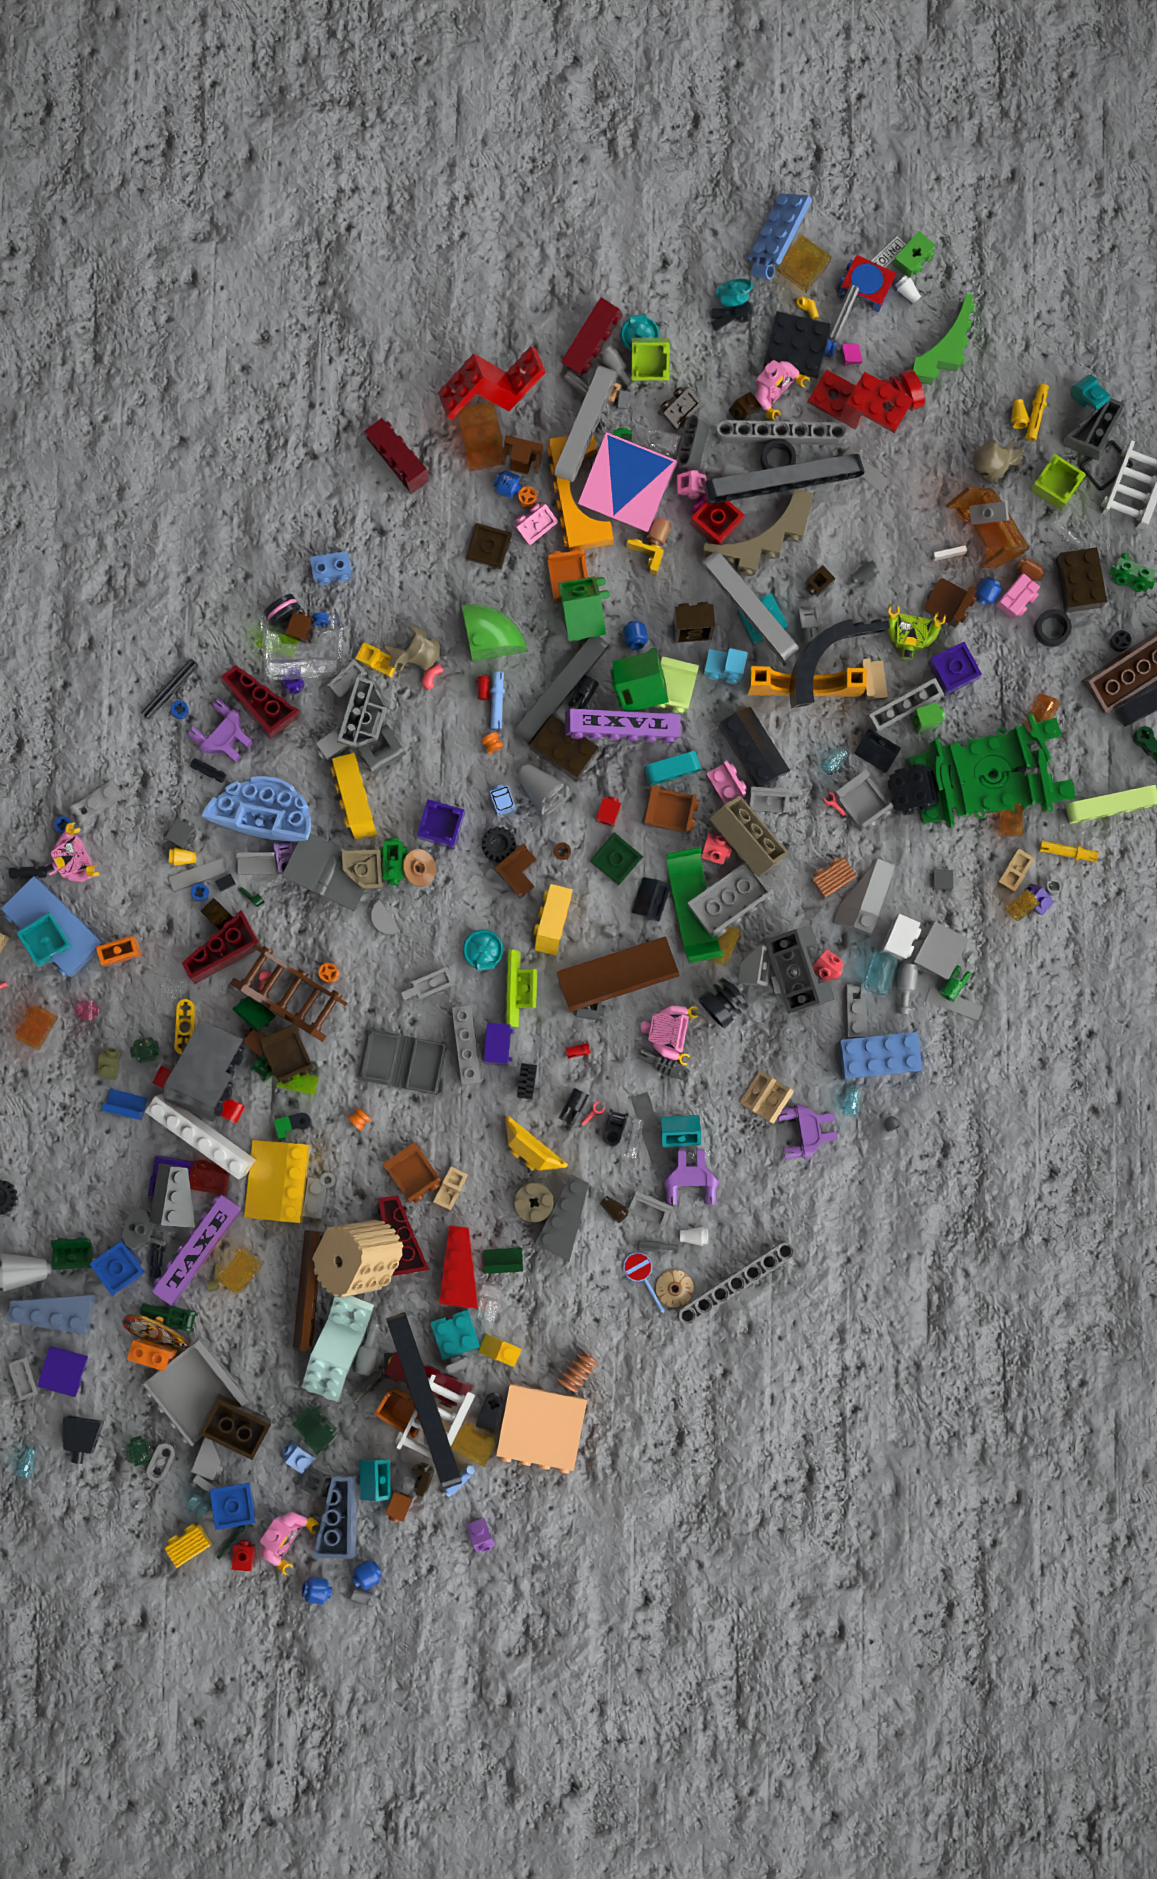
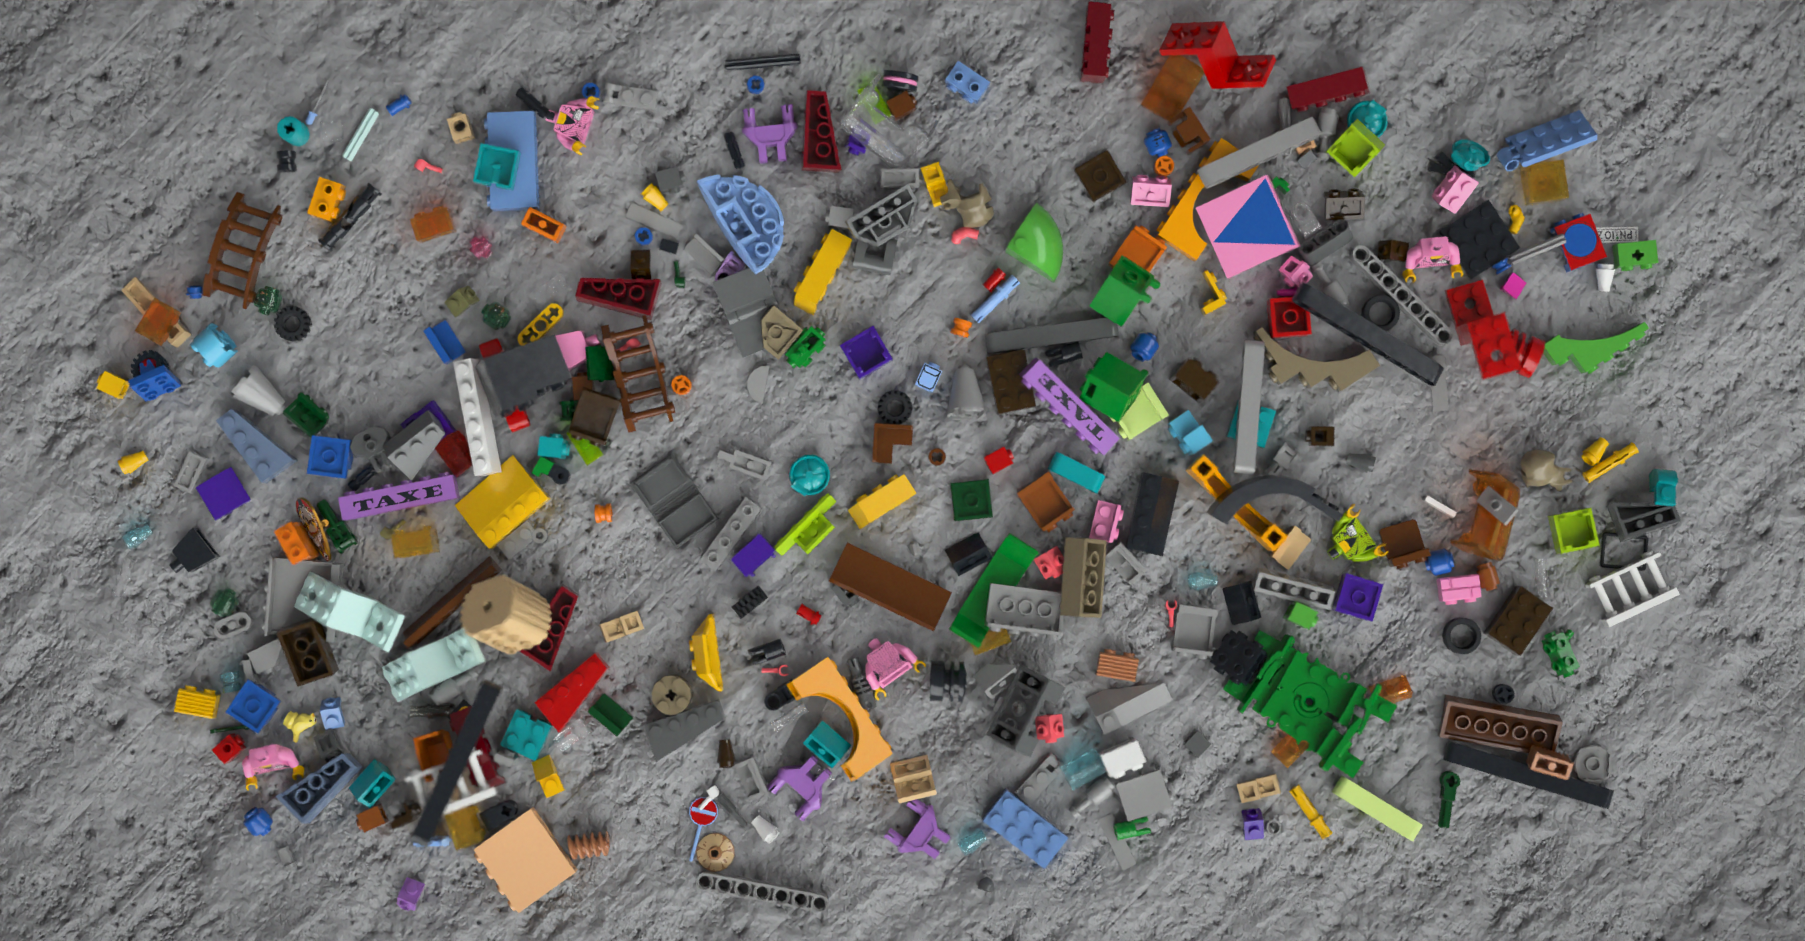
camera: 50 degrees right, 5 degrees up
(224, 1017) = (573, 347): none -> bright pink torso
(238, 1367) = (349, 611): none -> light aqua bracket
(277, 1103) = (553, 446): none -> teal brick
(278, 1487) = (299, 723): none -> light yellow animal
(315, 1429) = (363, 707): clear green brick -> none
(320, 619) = (922, 114): blue bush -> none
(366, 1575) = (303, 844): blue head -> none
(412, 1173) = (605, 589): dark orange panel -> none
(425, 867) = (824, 375): medium nougat dish -> none
(632, 1246) = (713, 793): none -> white hand
(659, 531) = (1236, 285): medium nougat brick -> none
(710, 1102) = (868, 745): none -> light orange arch
(746, 325) = (1454, 189): none -> bright pink bracket
(1022, 905) = (1236, 819): clear yellow slope -> none

